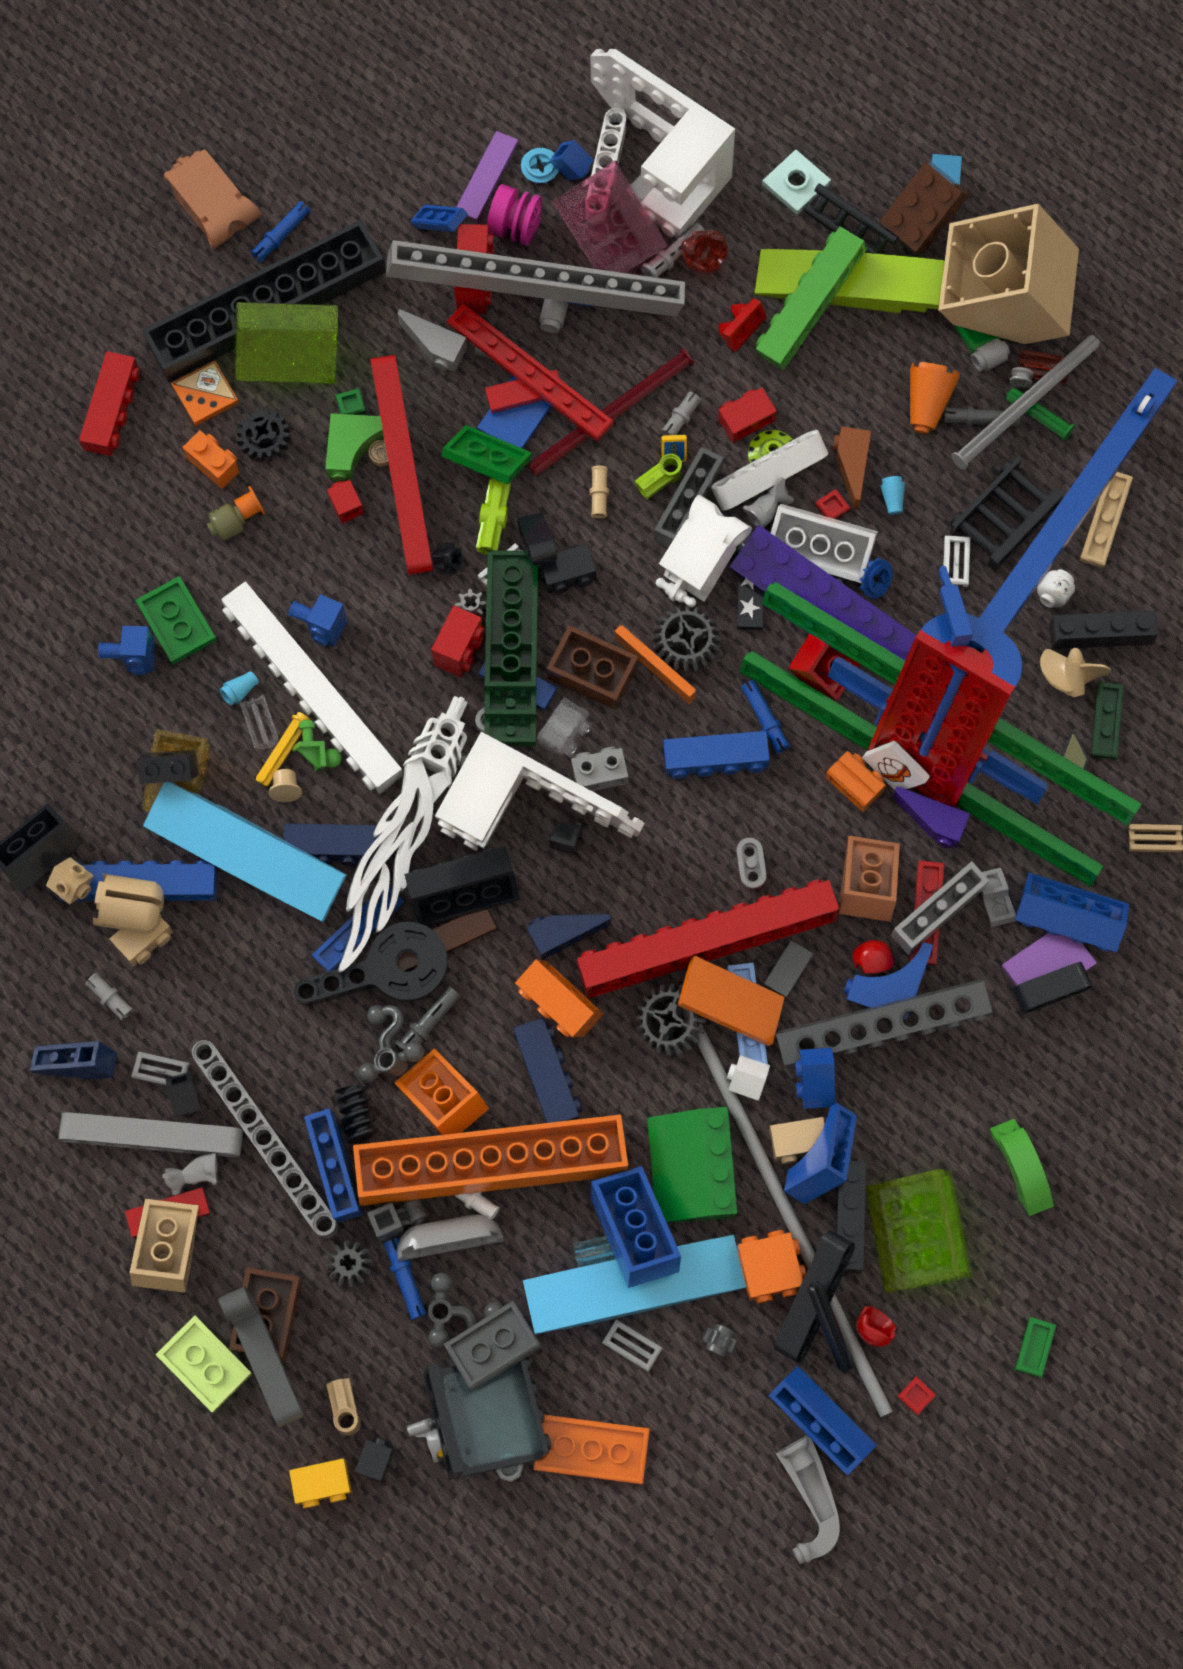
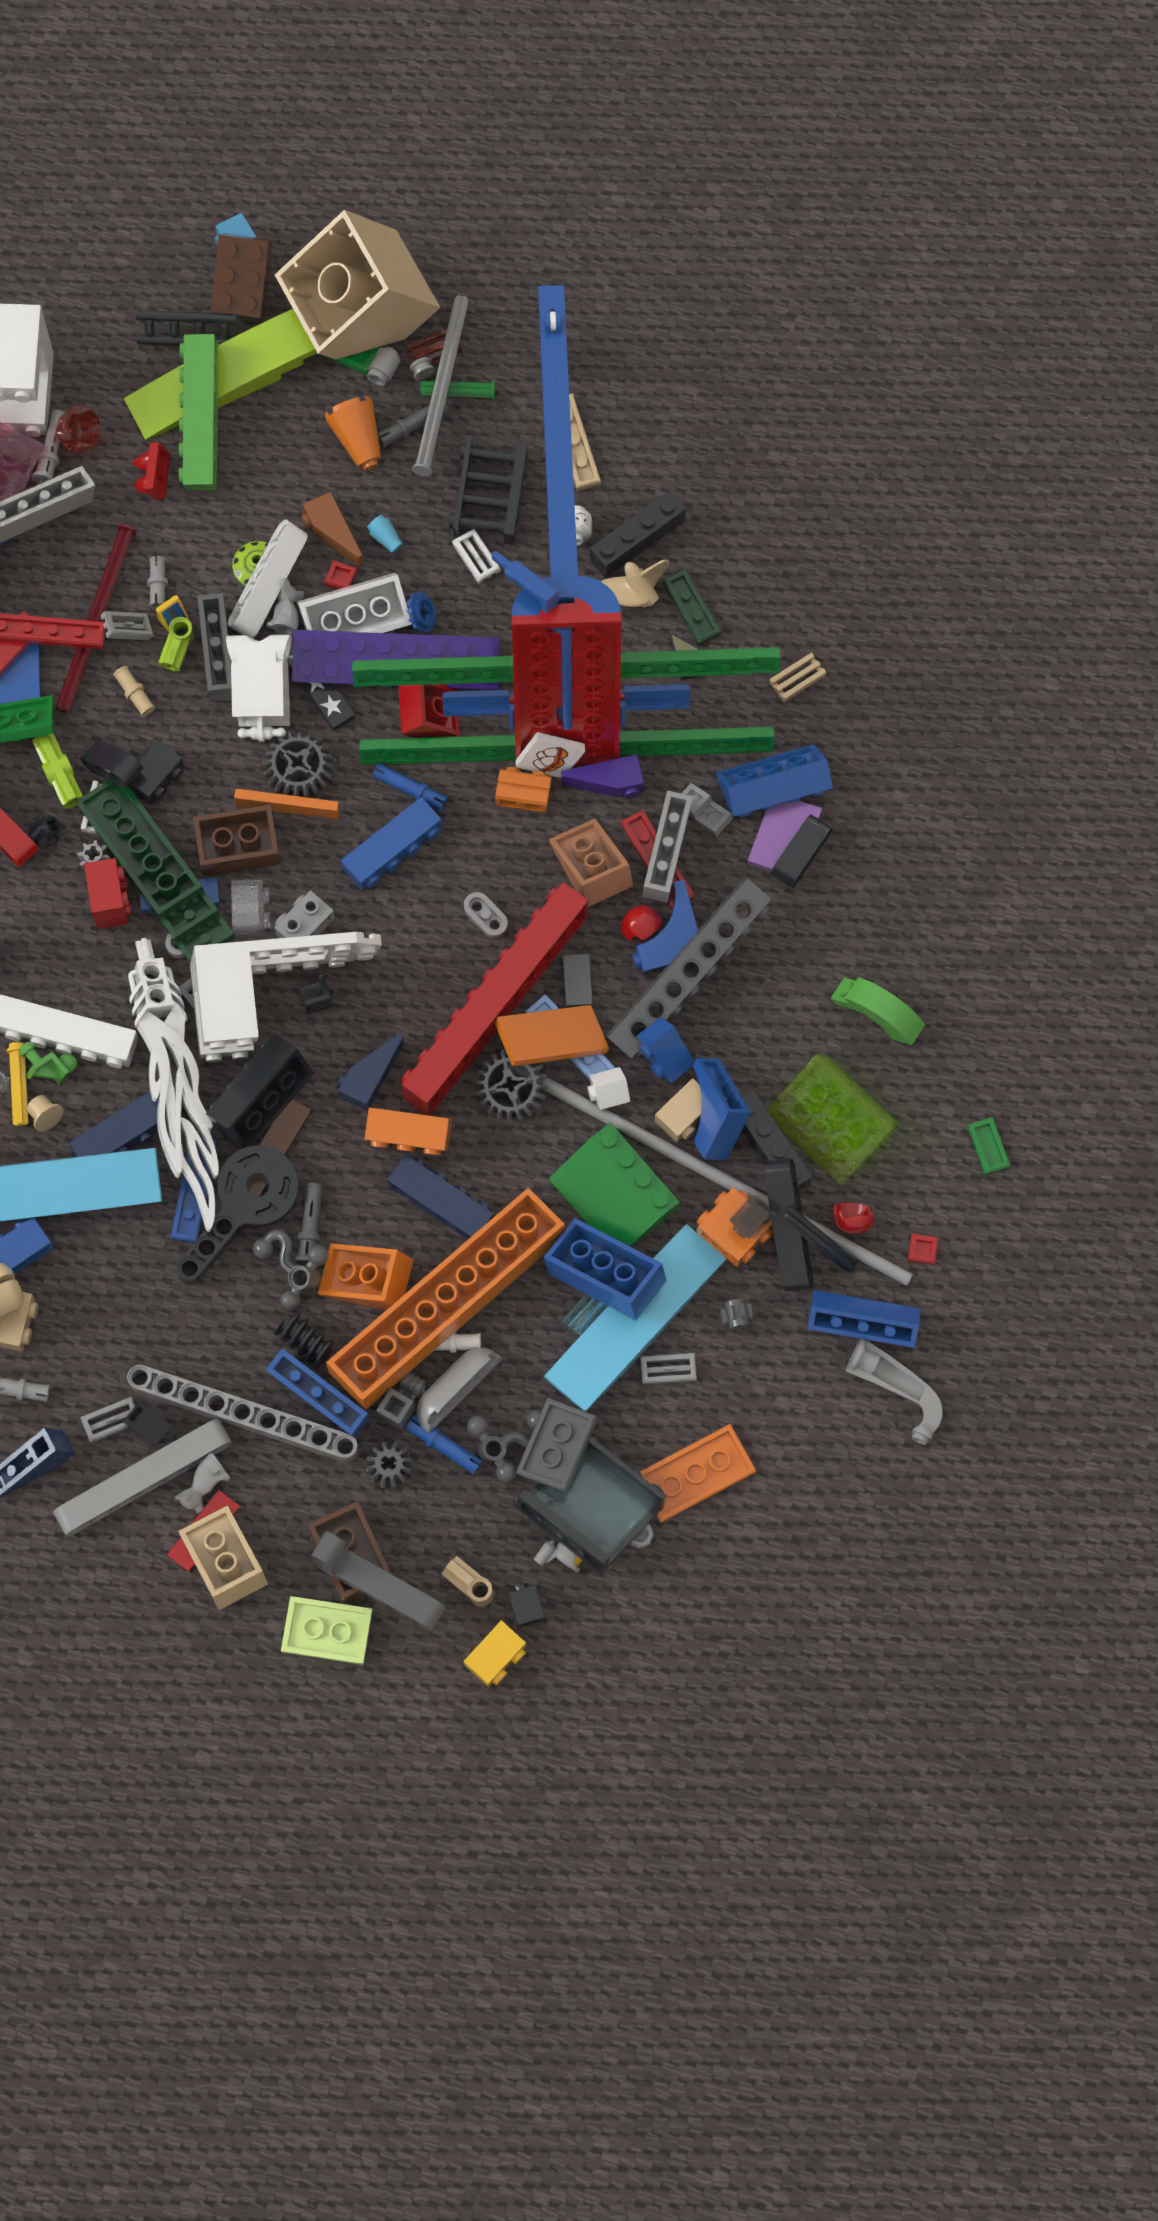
camera: 40 degrees left, 0 degrees up
(630, 440) = (128, 629): none -> light grey tile
(746, 414) = (214, 545): red brick -> none
(785, 1270) = (752, 1217): none -> clear smoke brick
(795, 196) = (118, 336): light aqua piece -> none

